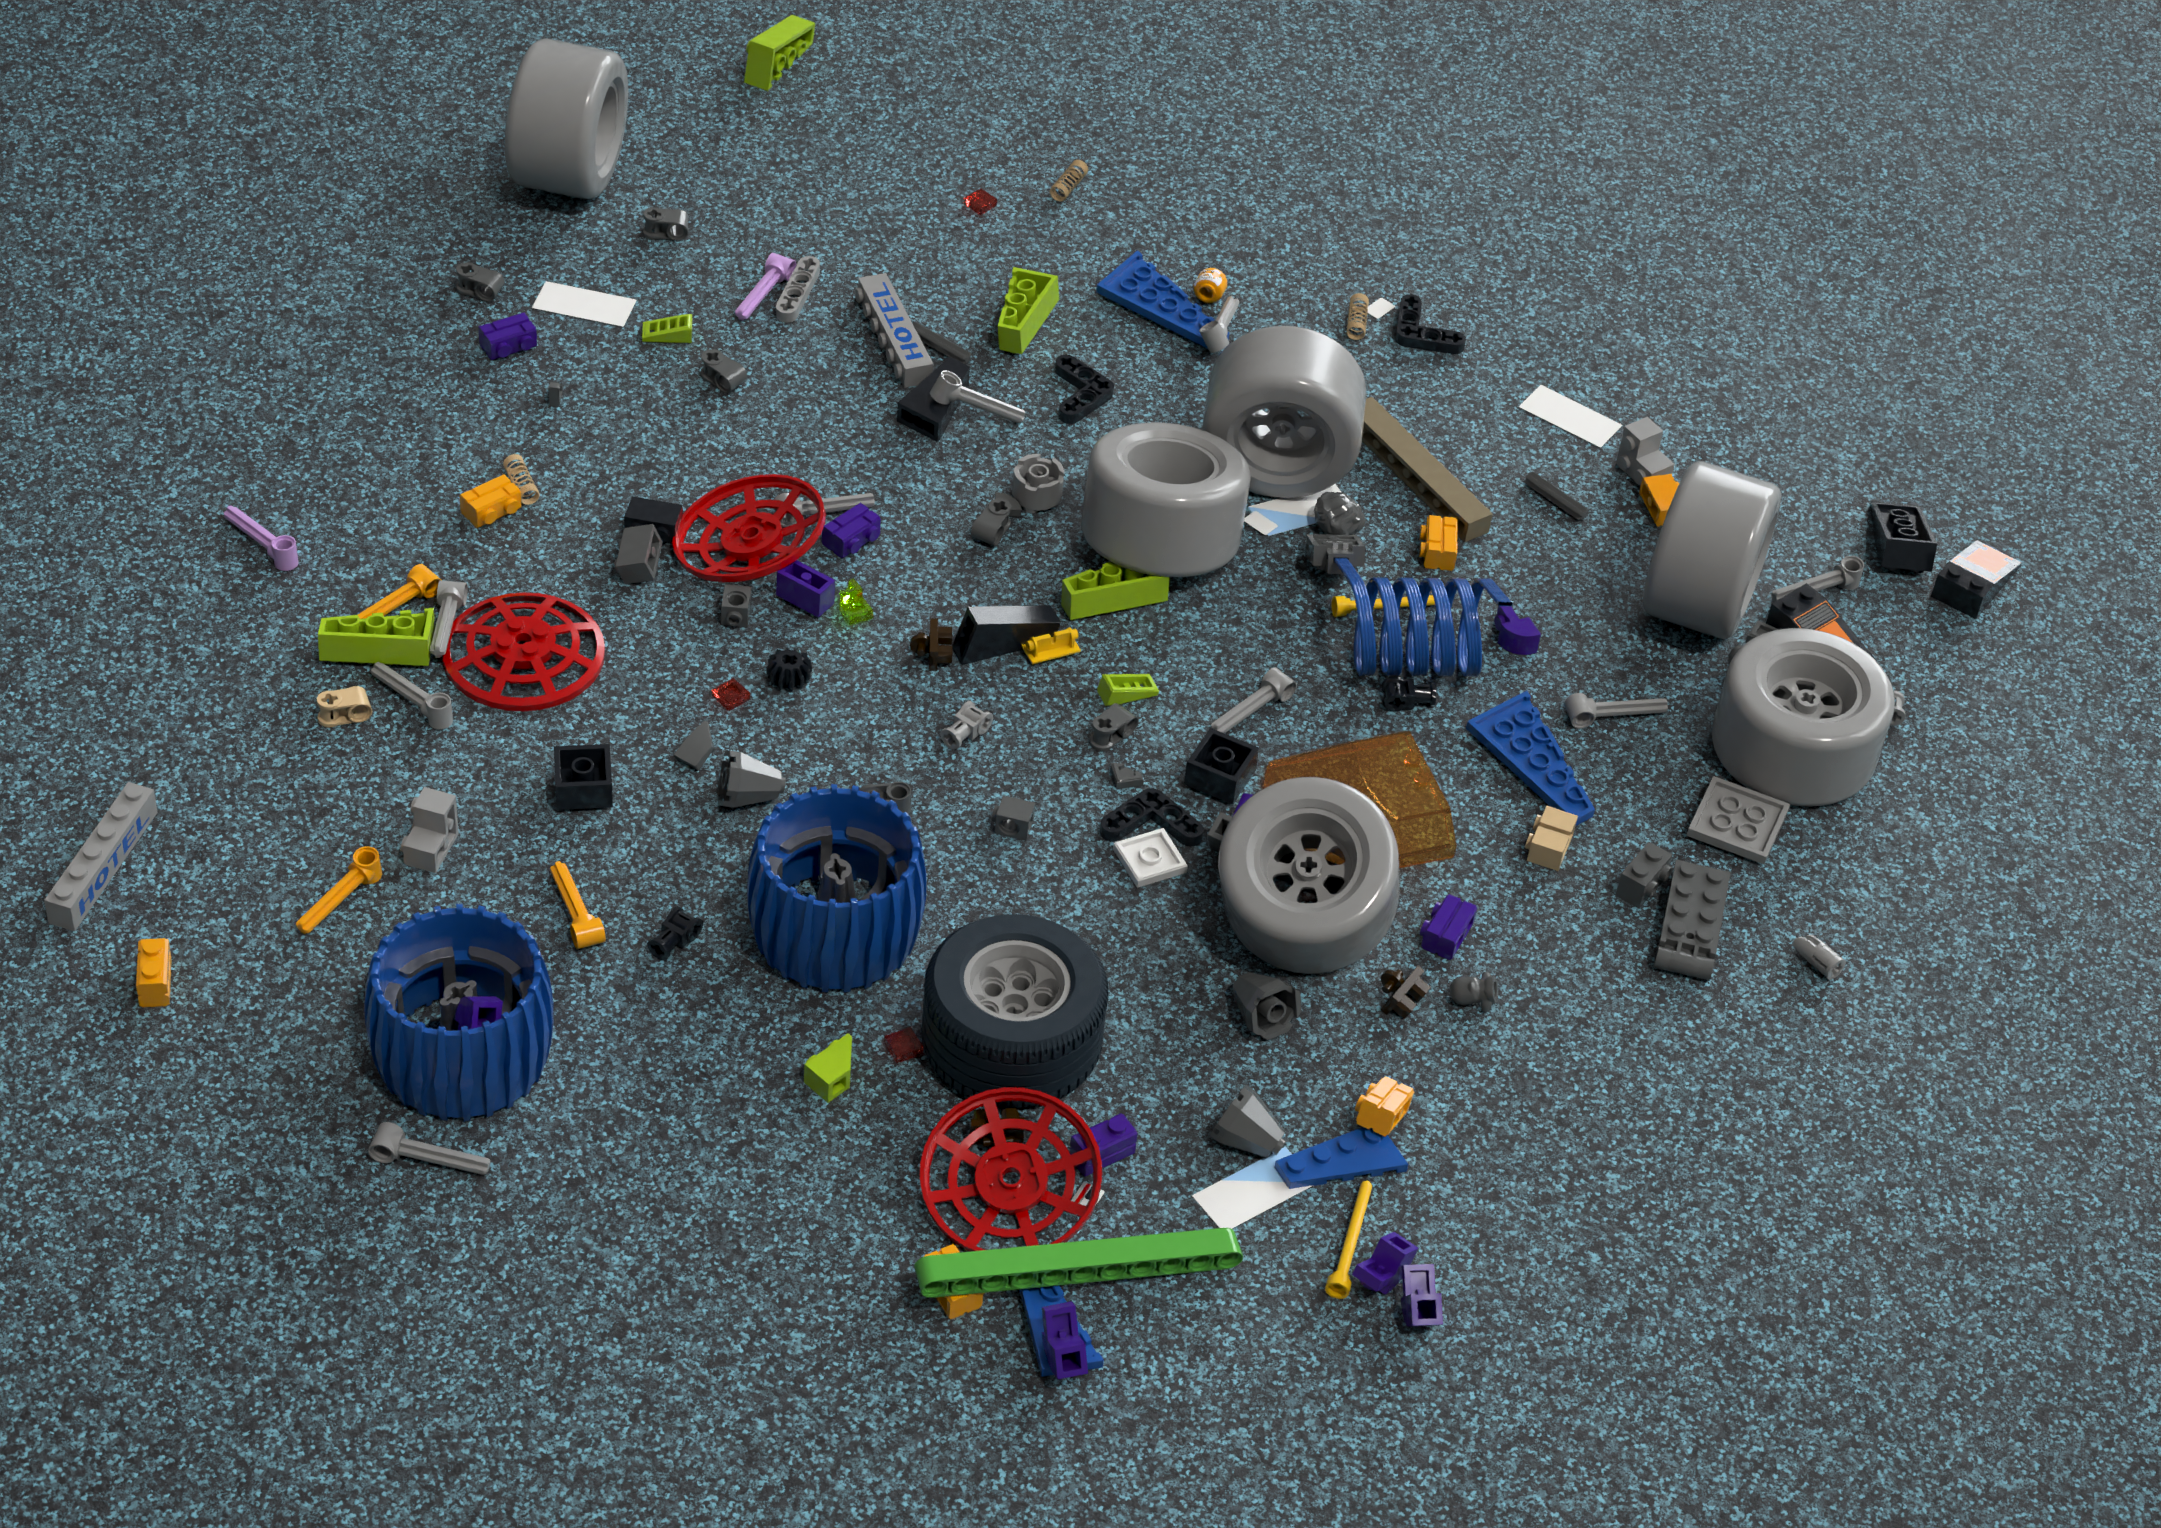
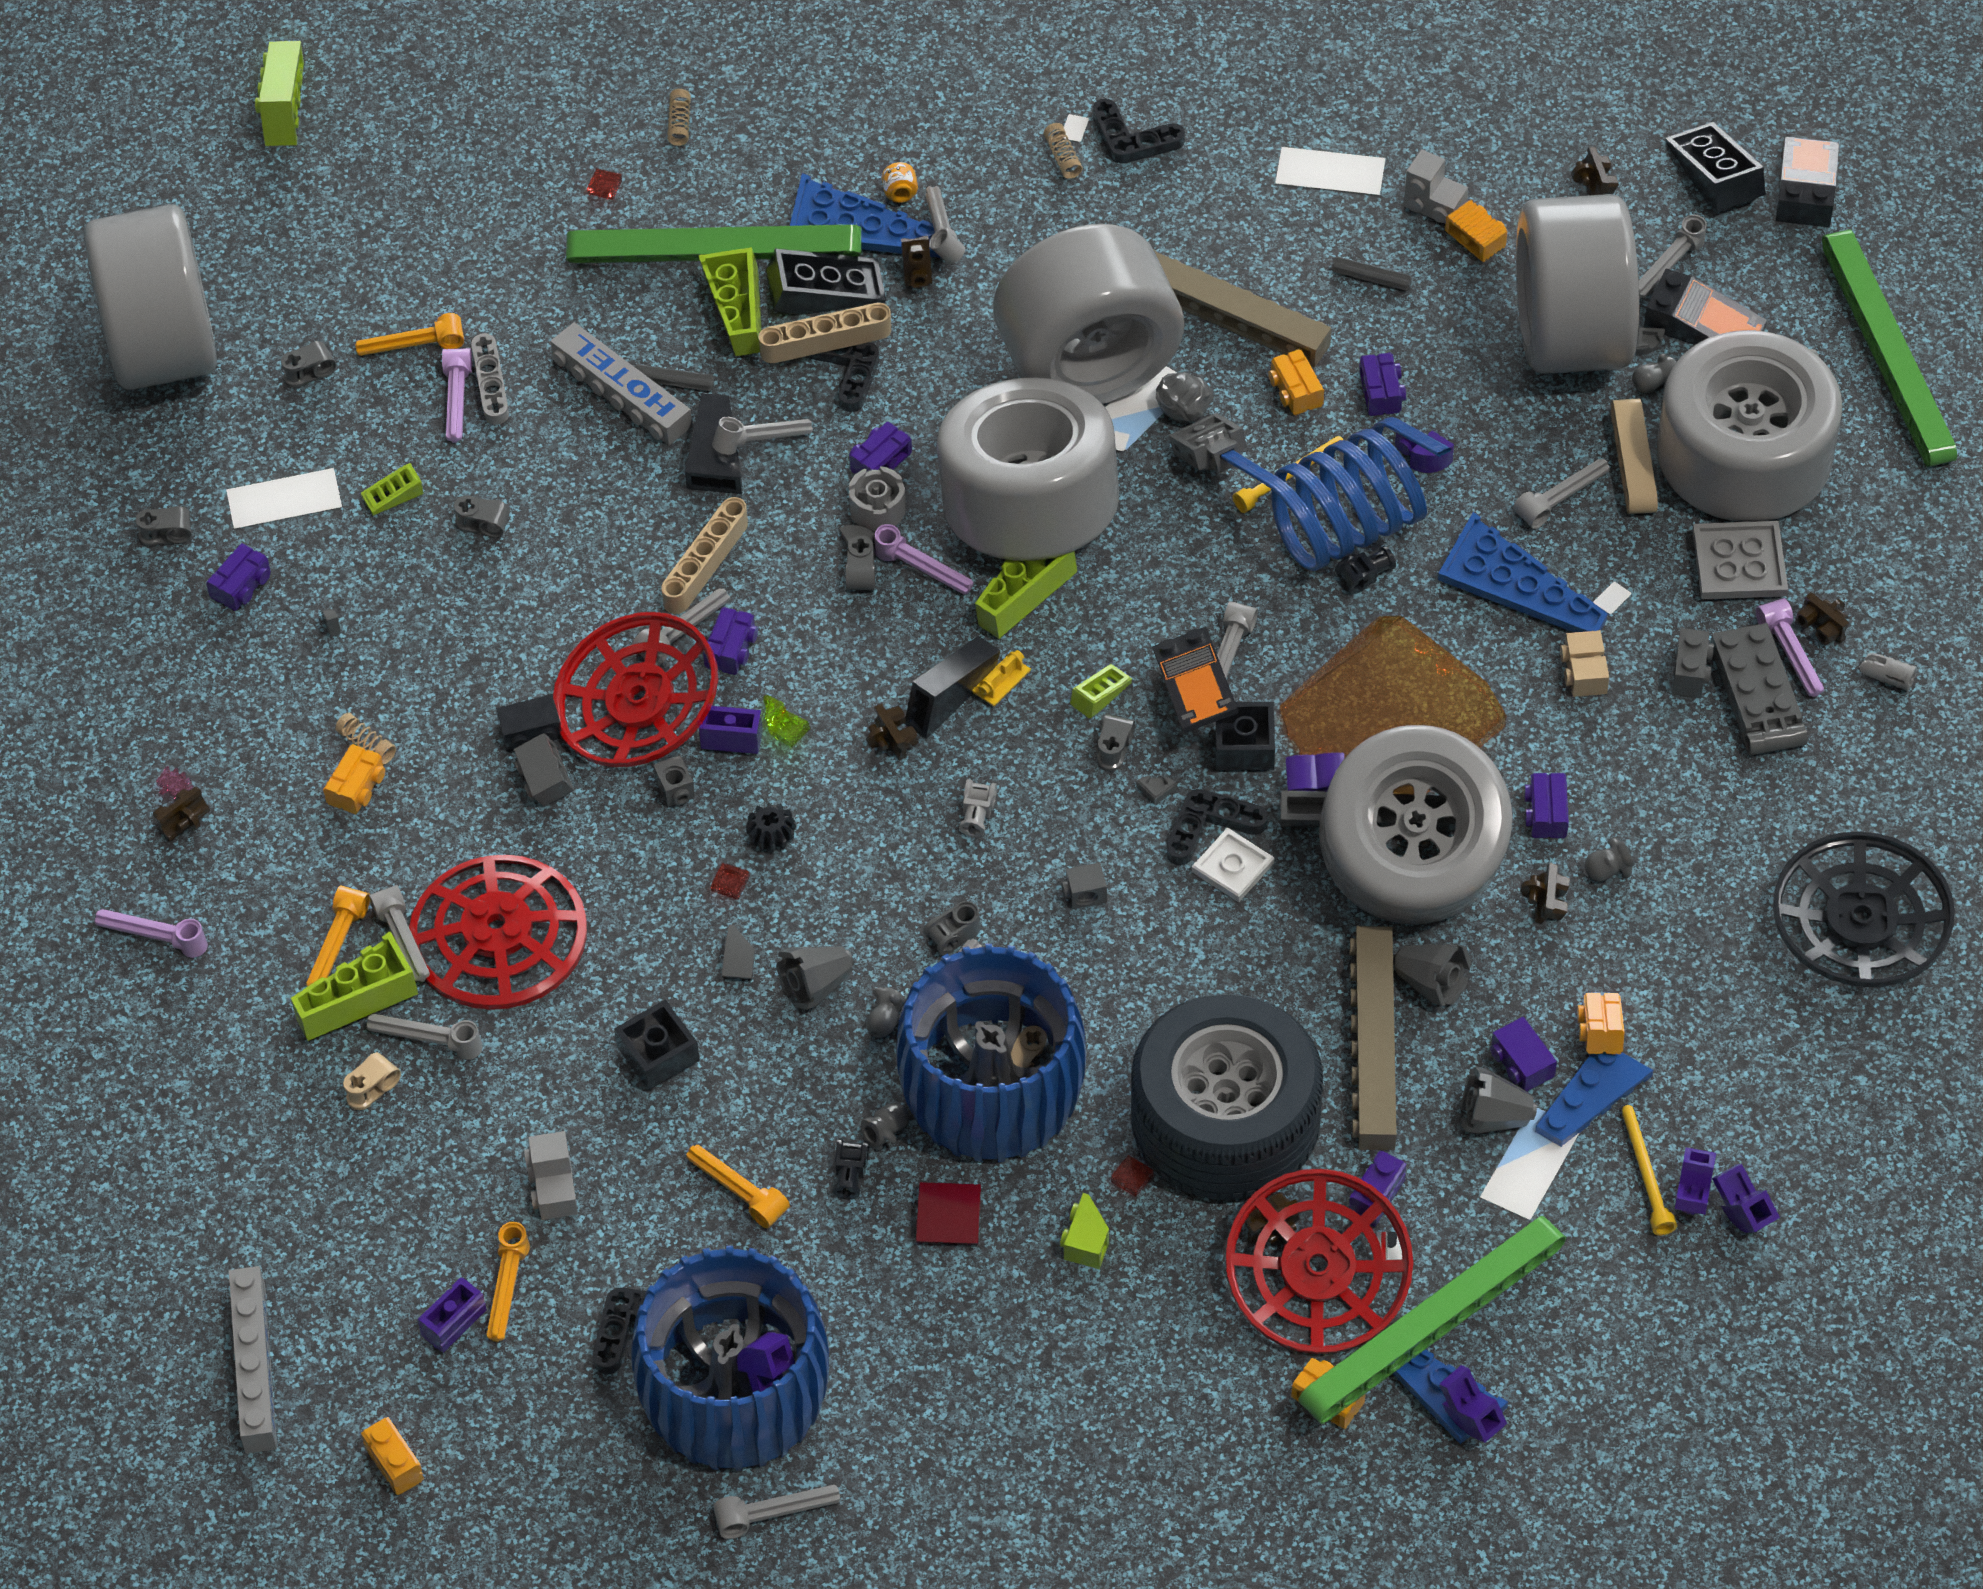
camera: 20 degrees left, 10 degrees up
(277, 893) = (452, 1314): none -> dark purple brick
(344, 469) = (183, 813): none -> dark brown hips
(357, 450) = (172, 782): none -> clear pink piece
(727, 913) = (886, 1122): none -> dark grey animal
(730, 1003) = (948, 1213): none -> dark red slope
(784, 245) = (447, 333): none -> light orange axle
(875, 466) = (704, 555): none -> tan beam
(1003, 256) = (688, 243): none -> bright green beam
(1029, 521) = (899, 549): none -> lavender axle
(1070, 451) = (883, 448): none -> dark purple brick
(1076, 356) = (825, 333): none -> tan beam
(1102, 326) = (822, 281): none -> black slope
(1178, 1034) = (1375, 1038): none -> dark tan brick
(1184, 339) = (916, 262): none -> dark brown hips
(1205, 703) = (1195, 679): none -> slope
(1299, 1099) = (1523, 1054): none -> dark purple brick
(1511, 570) = (1381, 384): none -> dark purple brick
(1609, 803) = (1612, 598): none -> white sticker
(1682, 1113) = (1865, 898): none -> black dish
(1694, 708) = (1634, 456): none -> tan beam
(1743, 877) = (1779, 618): none -> lavender axle
(1789, 891) = (1826, 616): none -> dark brown hips
(1794, 501) = (1593, 172): none -> dark brown hips
(1971, 723) = (1889, 348): none -> bright green beam

